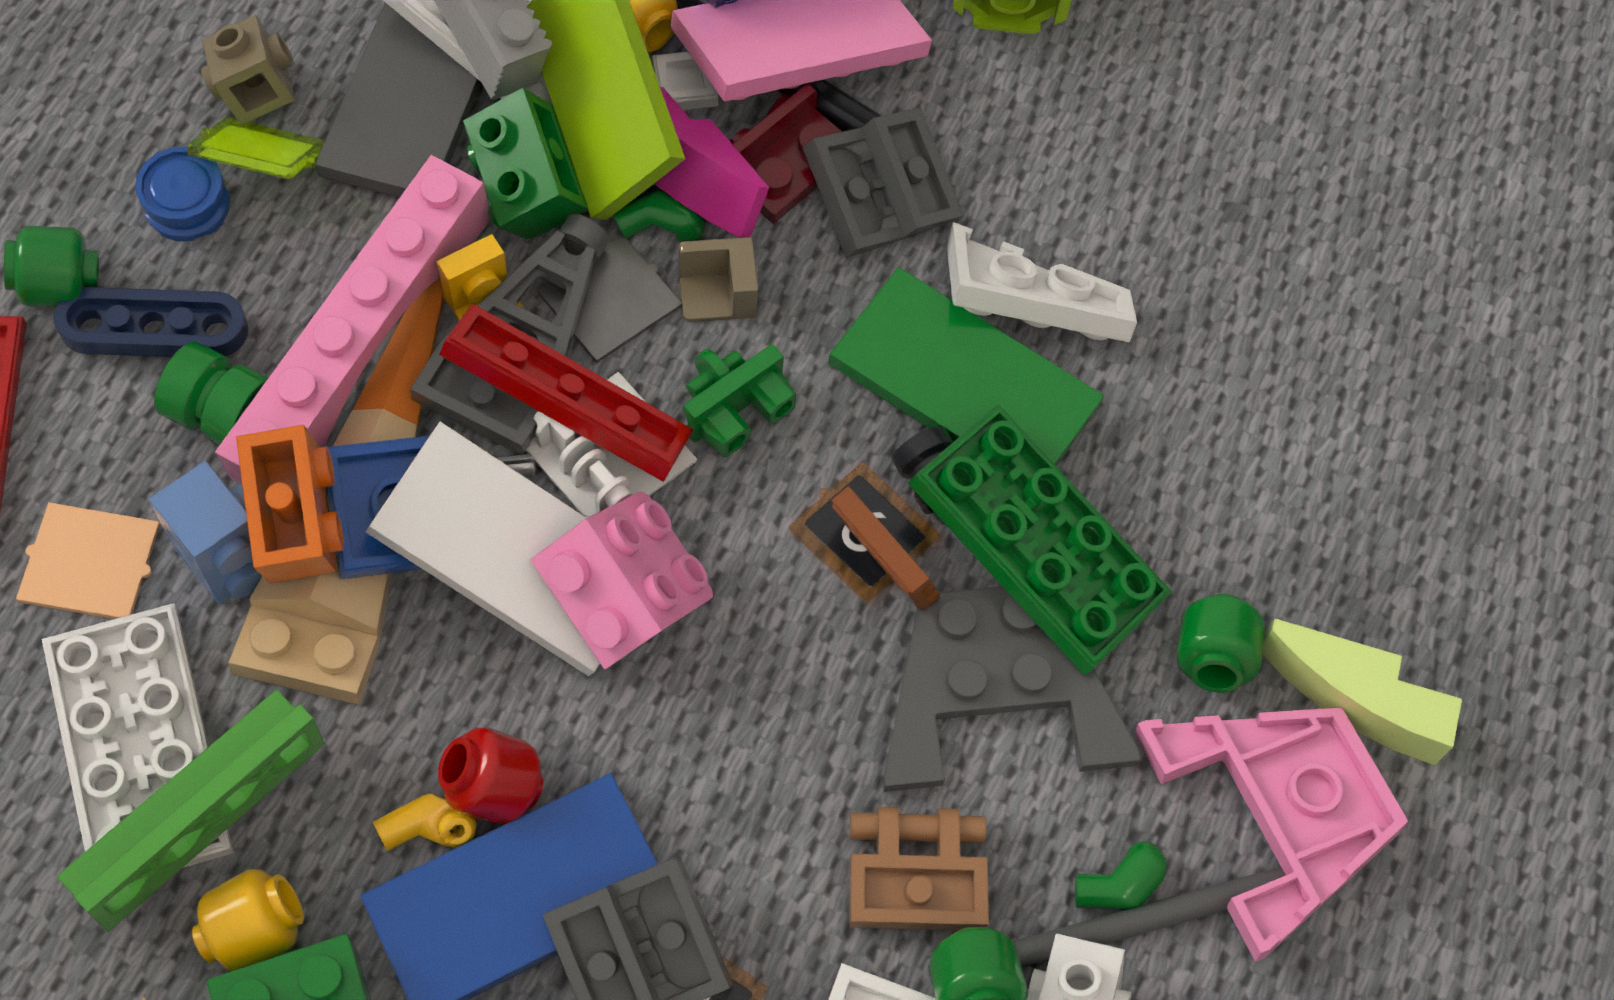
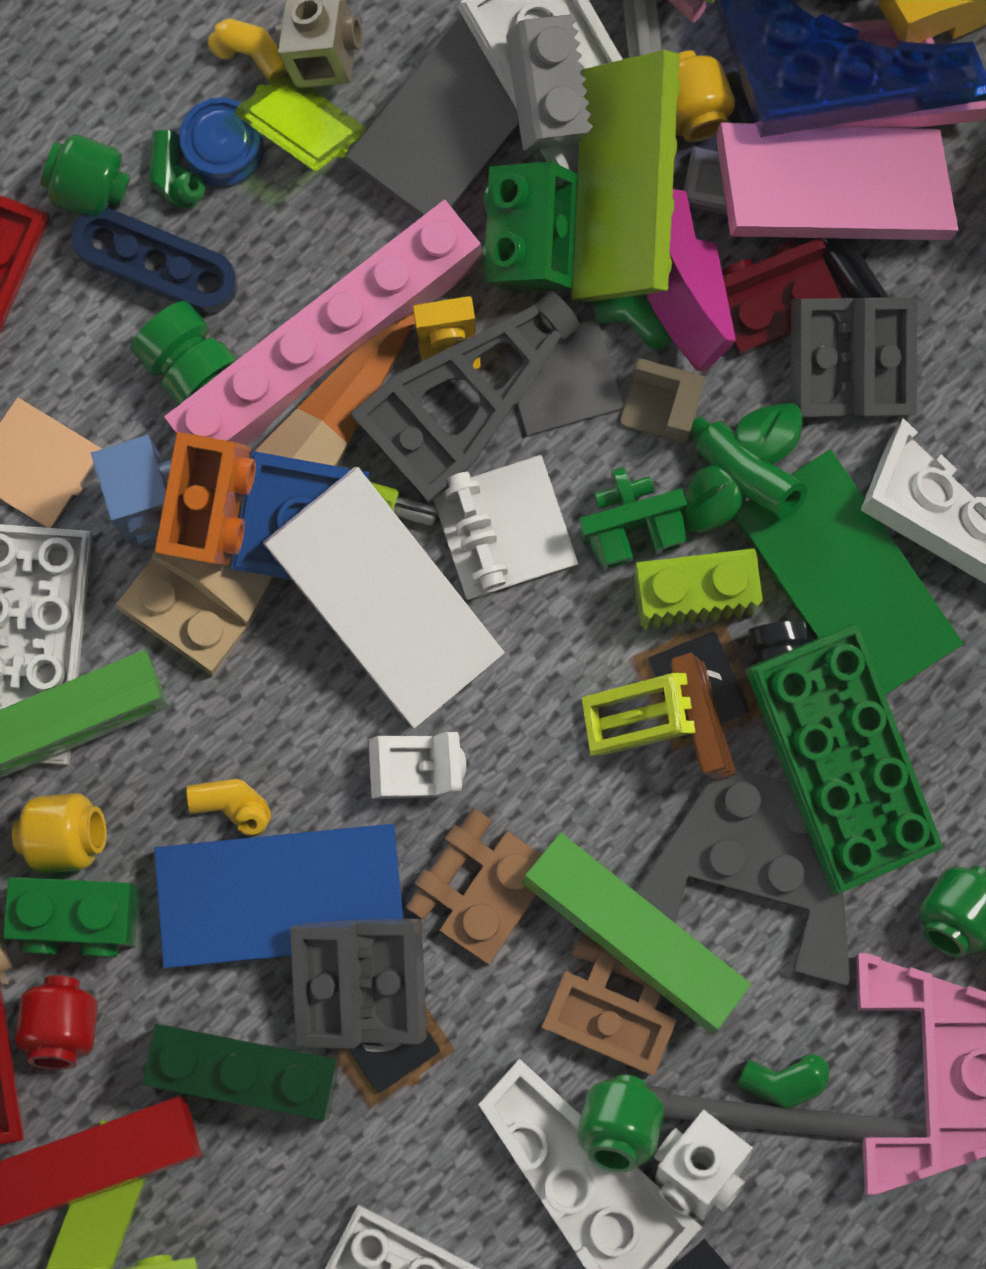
camera: 30 degrees right, 15 degrees up
(139, 245) = (168, 176): none -> green arm
(185, 98) = (238, 36): none -> yellow arm
(490, 775) = (293, 788): red head -> none
(566, 392) = (483, 469): red tile -> none
(612, 708) = (416, 766): none -> white bracket
(623, 576) = (470, 659): bright pink bracket -> none
(747, 811) = (495, 898): none -> medium nougat plate
(822, 309) = (744, 467): none -> green plant
(826, 435) = (697, 588): none -> lime brick
(855, 541) = (673, 707): none -> neon yellow tile
(909, 785) = (636, 933): none -> bright green tile

